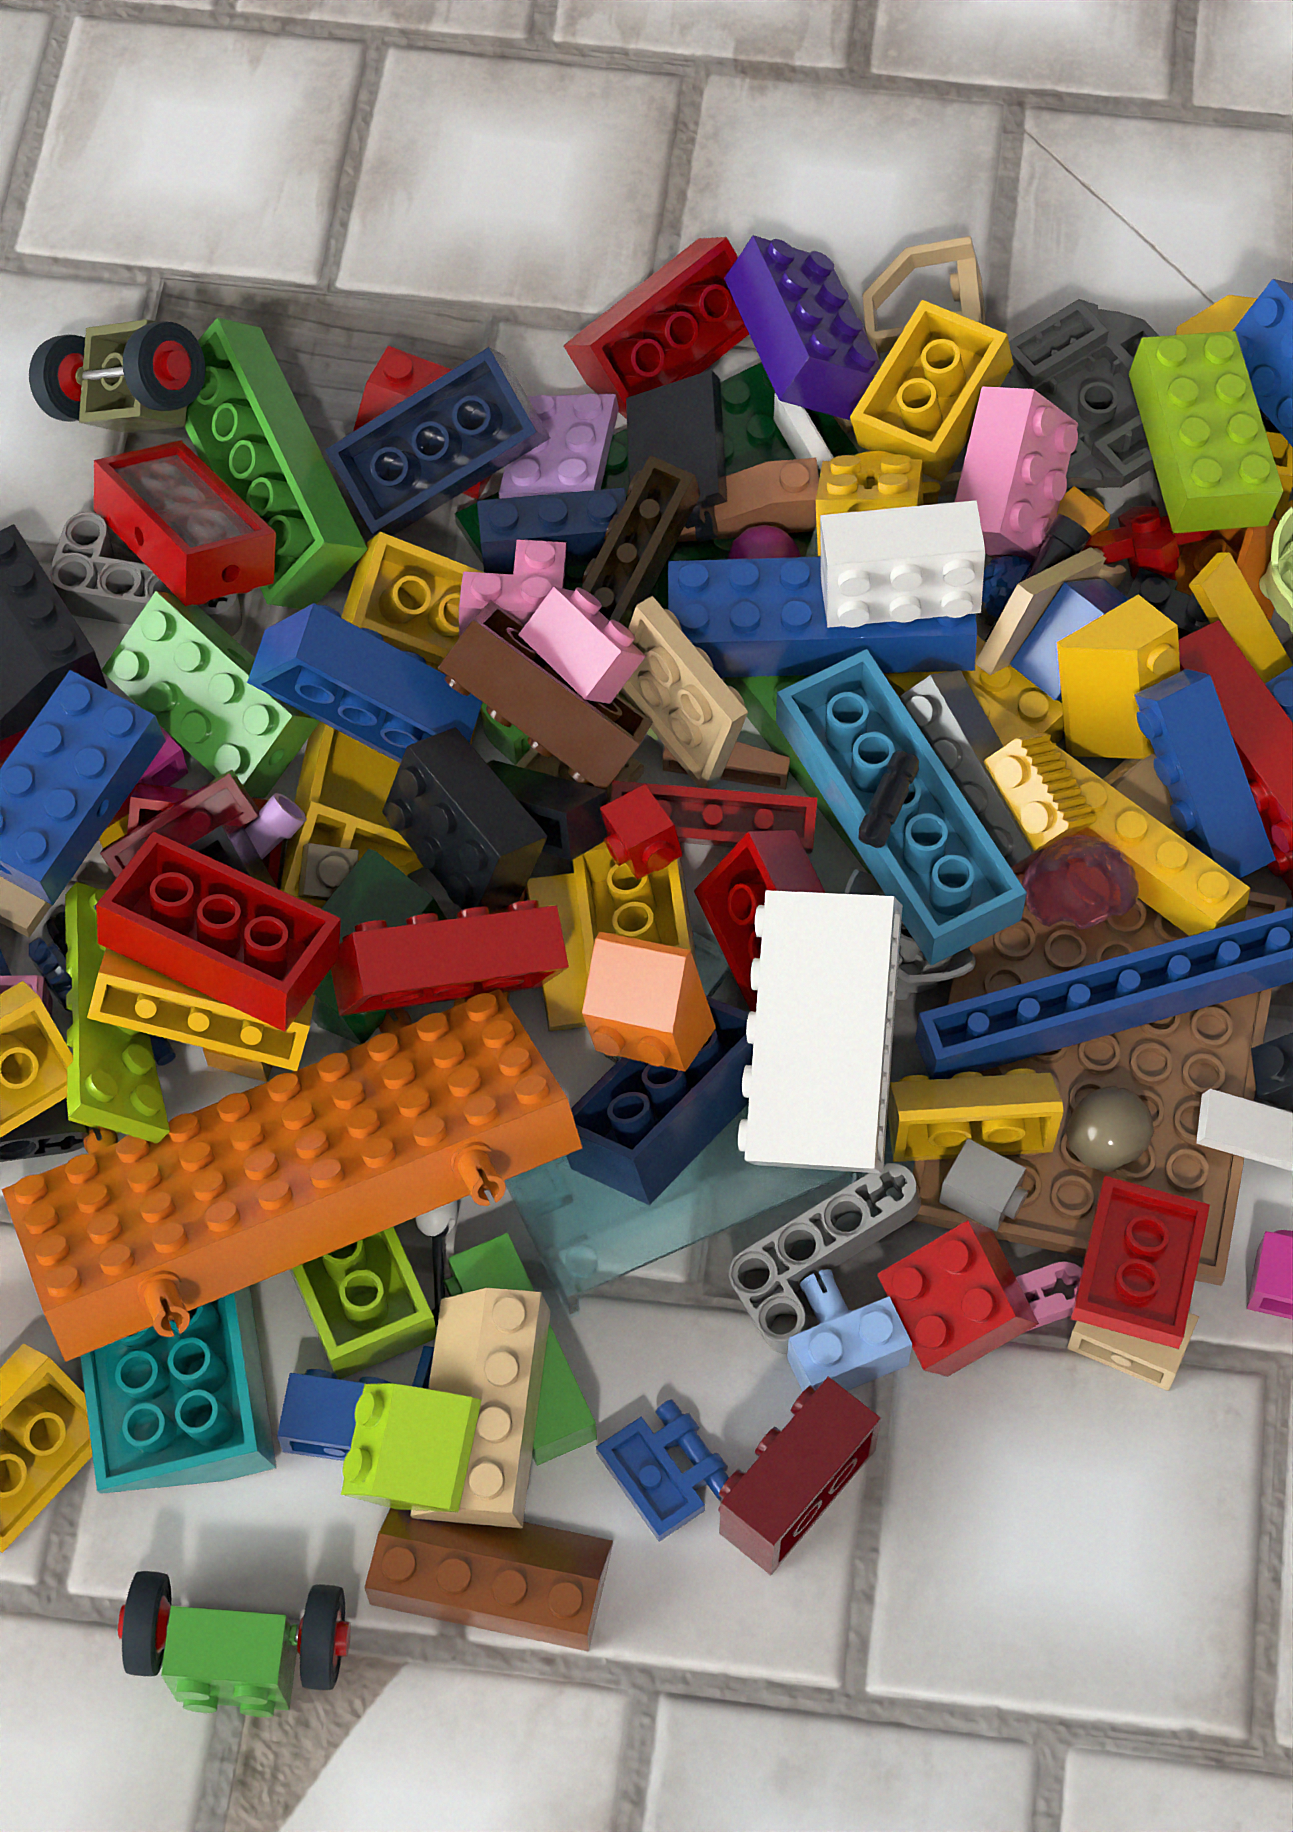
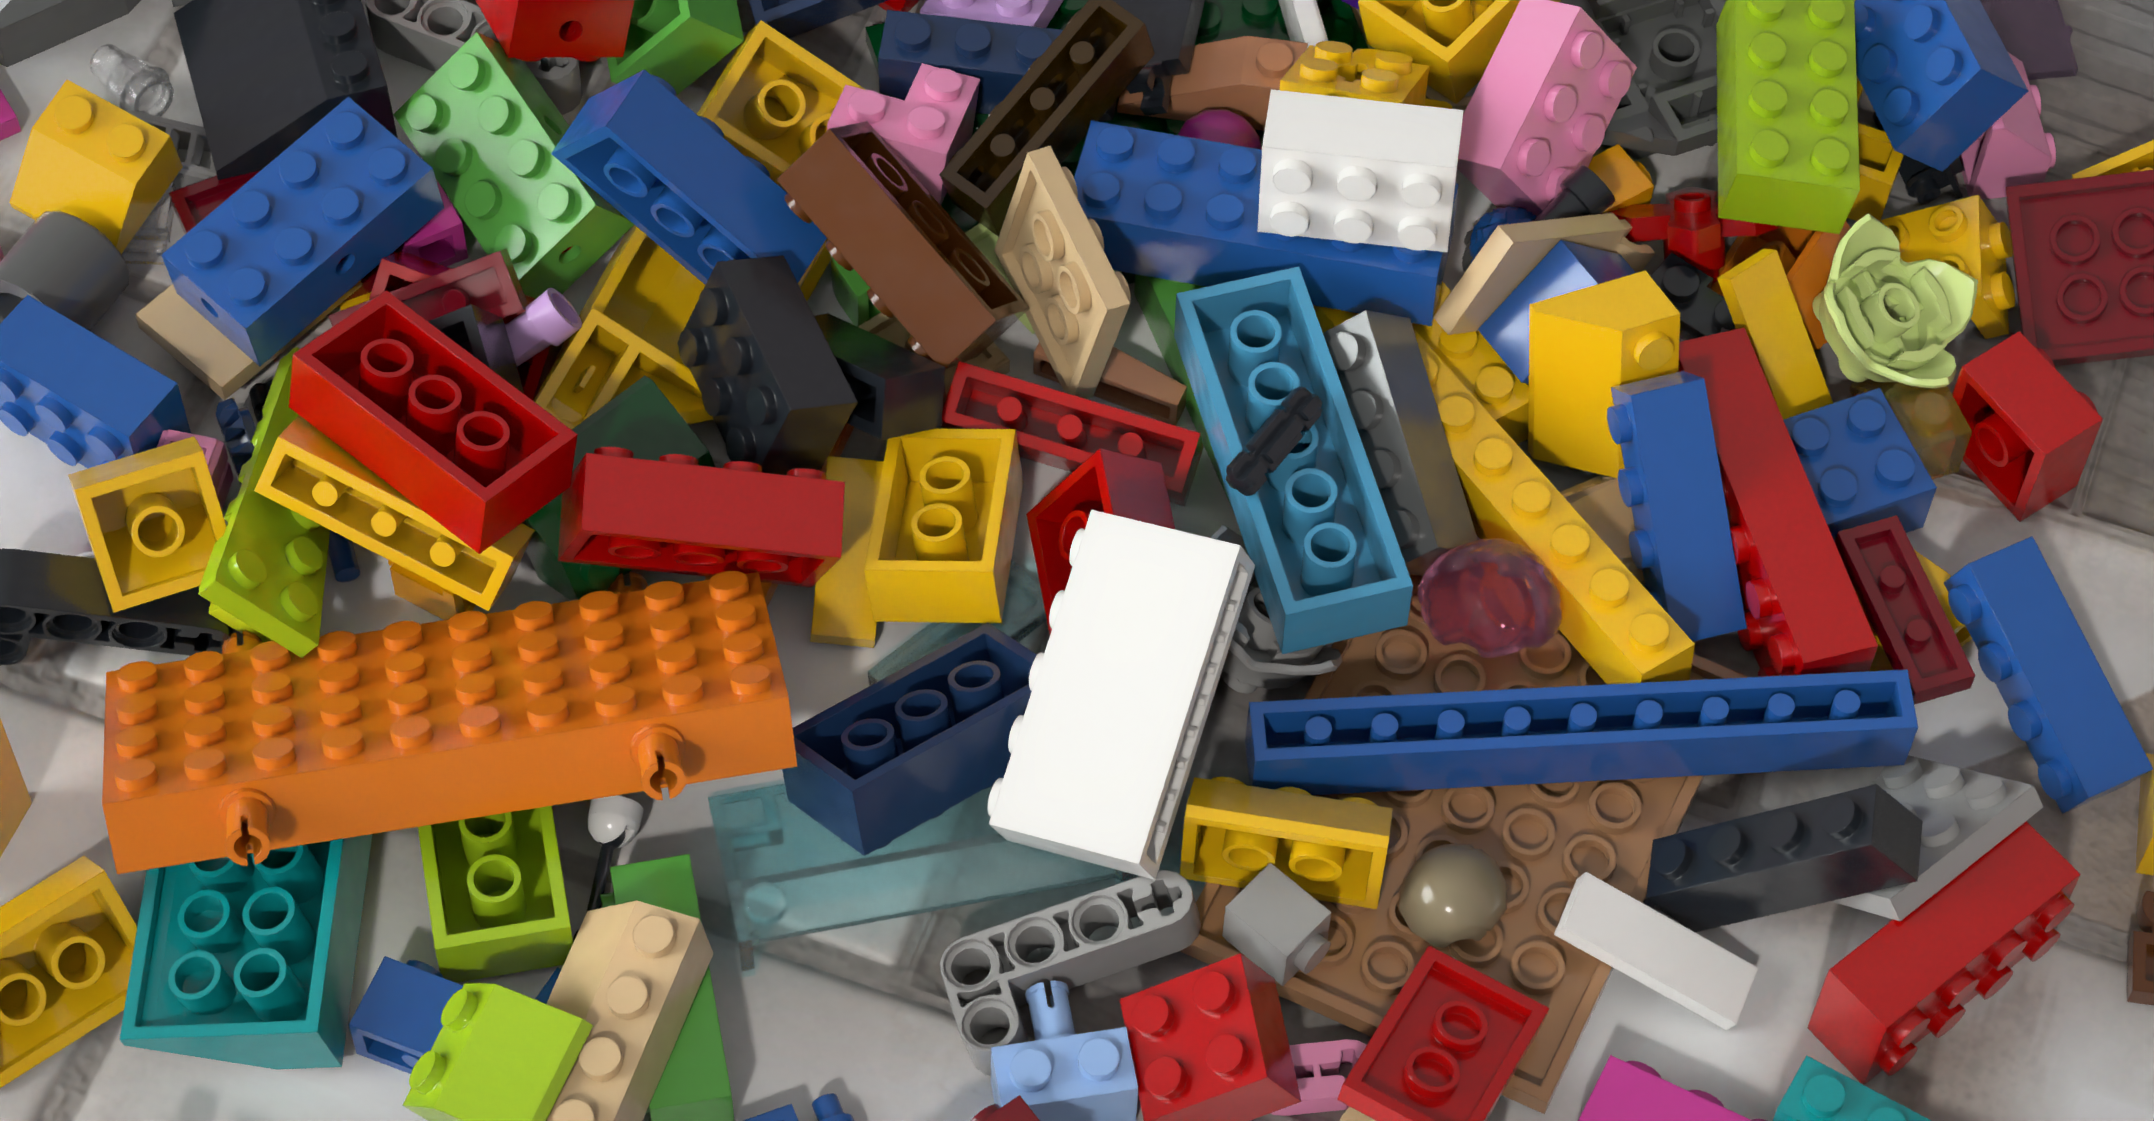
camera: 10 degrees right, 5 degrees down
(324, 870) = (586, 389): dark tan plate -> none
(583, 644) = (959, 190): bright pink brick -> none
(640, 832) = (971, 424): red brick -> none
(646, 1002) = (921, 617): slope -> none
(1039, 790) = (1466, 475): yellow brick -> none

